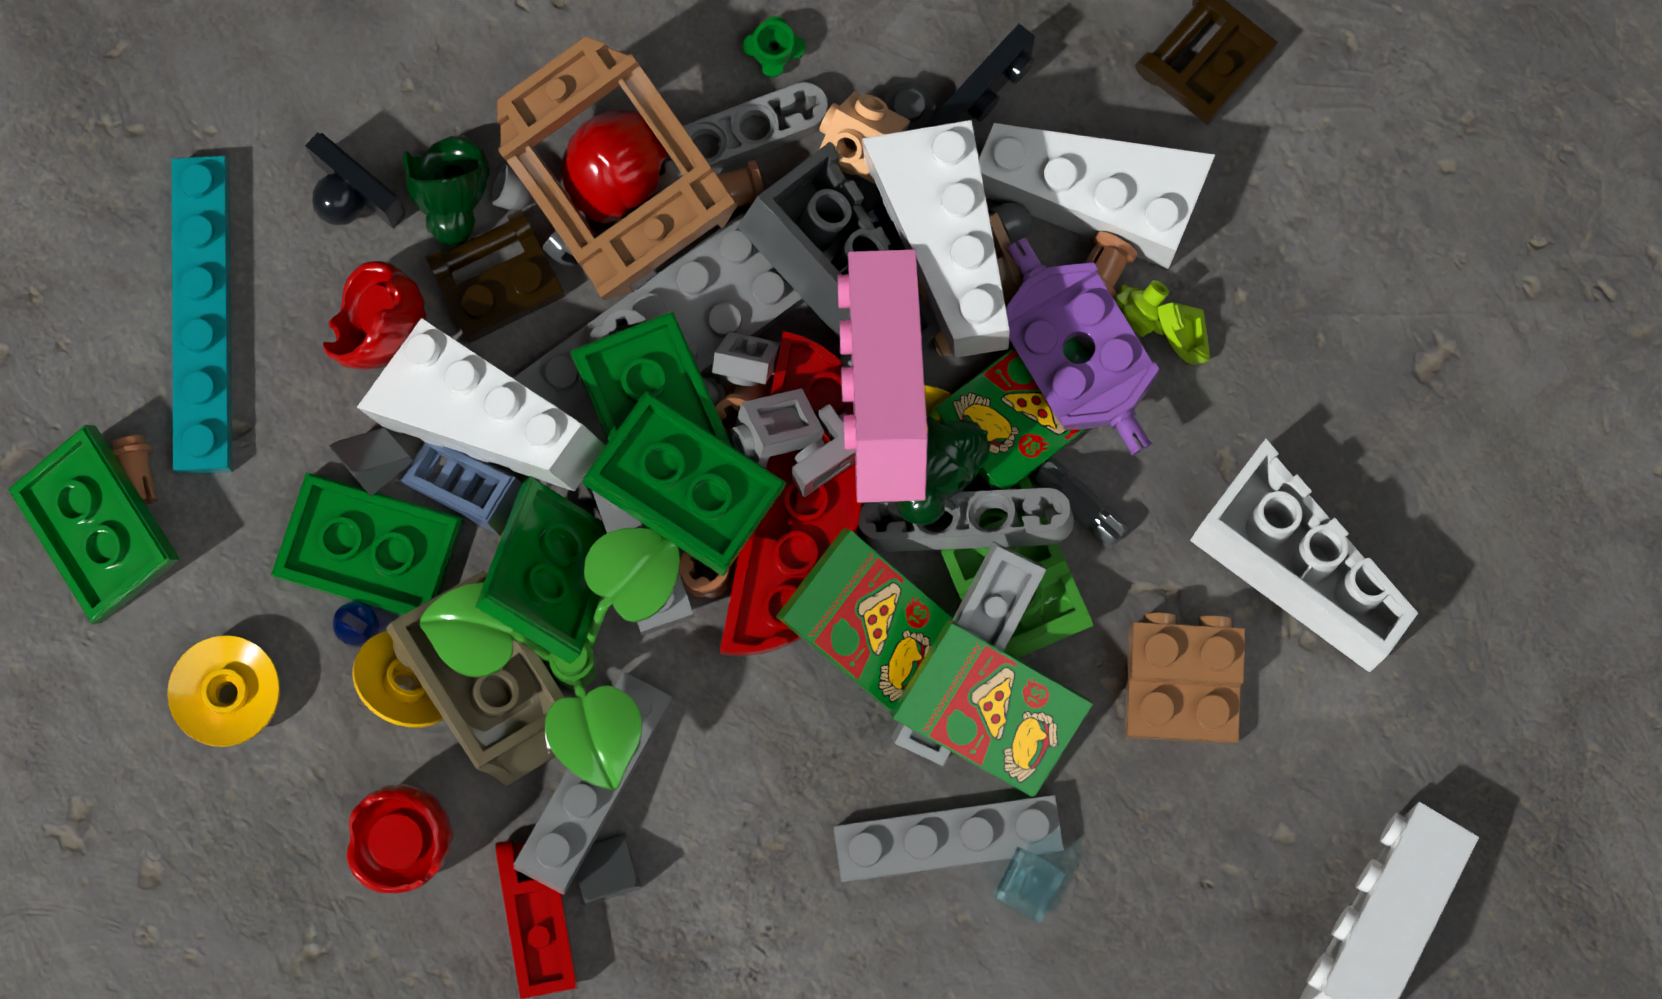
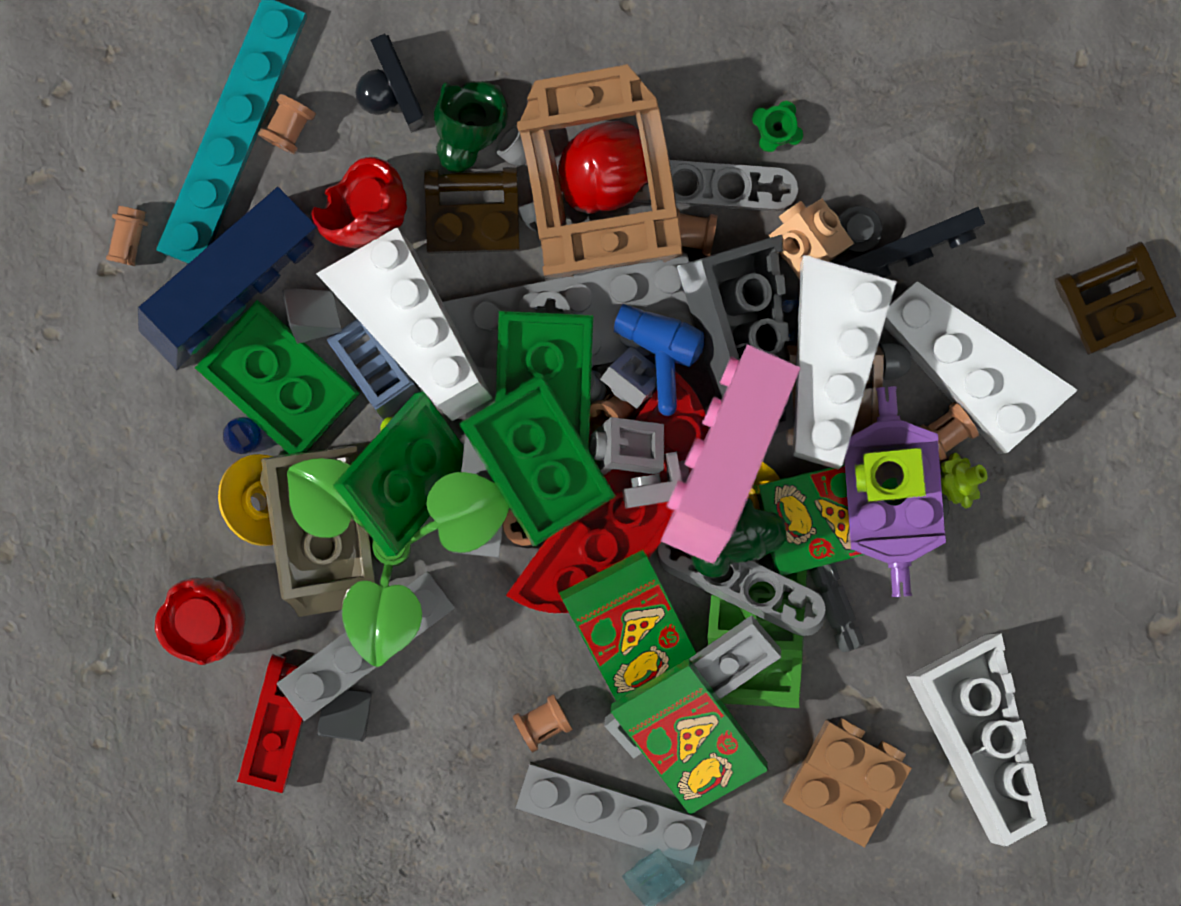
camera: 25 degrees right, 10 degrees up
(93, 524) = (77, 264): green tile -> none
(197, 684) = (96, 442): yellow dish -> none
(256, 276) = (287, 124): none -> nougat bush
(259, 464) = (225, 277): none -> dark blue wedge
(764, 303) = (669, 341): none -> blue piece
(826, 774) = (542, 723): none -> nougat bush
(1075, 300) = (913, 481): none -> lime brick
(1185, 331) = (985, 514): lime tile -> none

